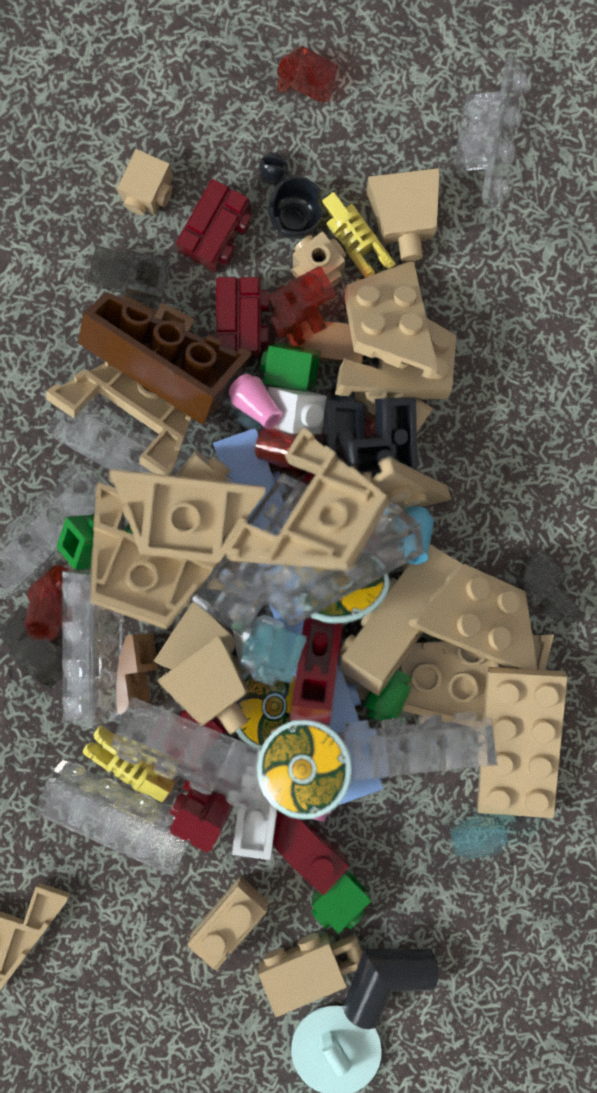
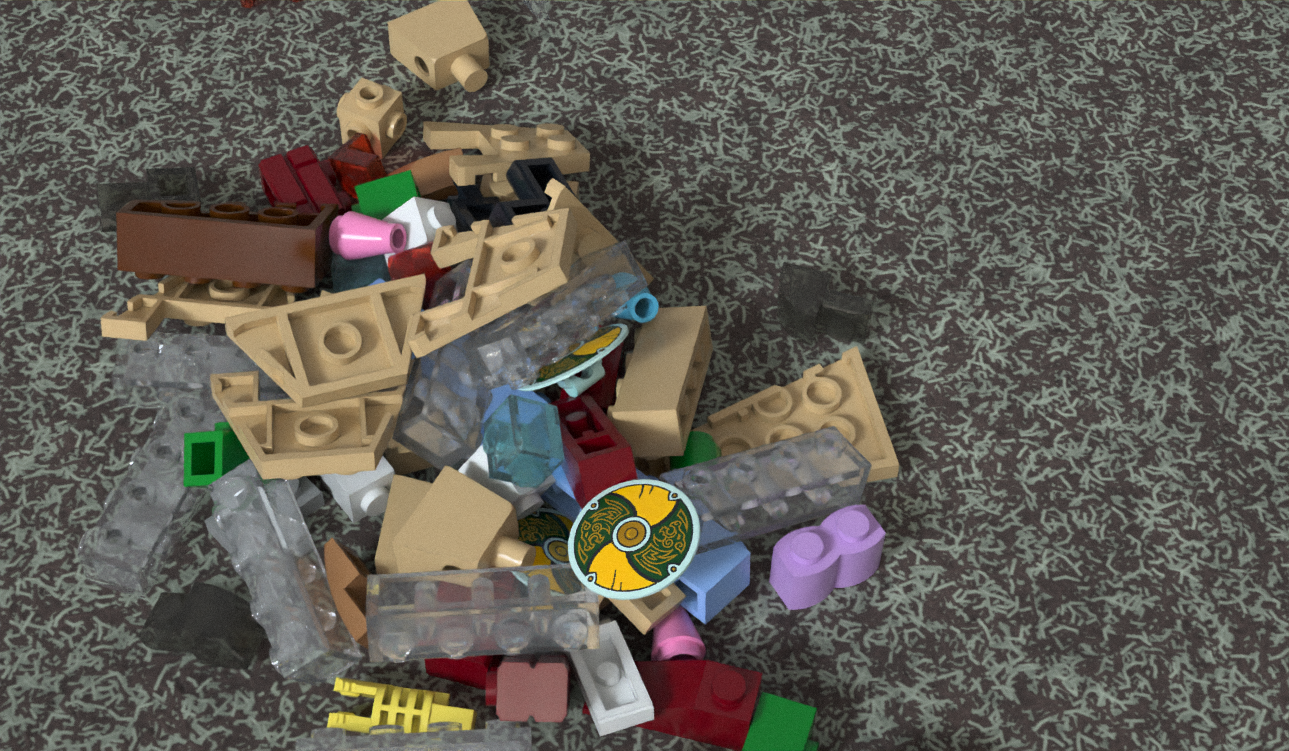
camera: 30 degrees left, 35 degrees down
(45, 605) = (199, 551): clear red piece -> none
(145, 184) = (130, 122): tan brick -> none
(214, 226) = (231, 131): dark red brick -> none
(270, 172) = (273, 66): black hinge -> none
(291, 196) = (315, 74): black hair -> none
(310, 292) = (374, 134): clear red bracket -> none
(355, 235) = (413, 84): light yellow hinge -> none
(390, 319) = (484, 119): tan wing -> none
(431, 791) = (826, 556): none -> lavender brick
(478, 838) = (909, 594): clear light blue brick -> none
(481, 618) = (763, 343): tan wing -> none
(527, 736) = (911, 476): tan plate -> none

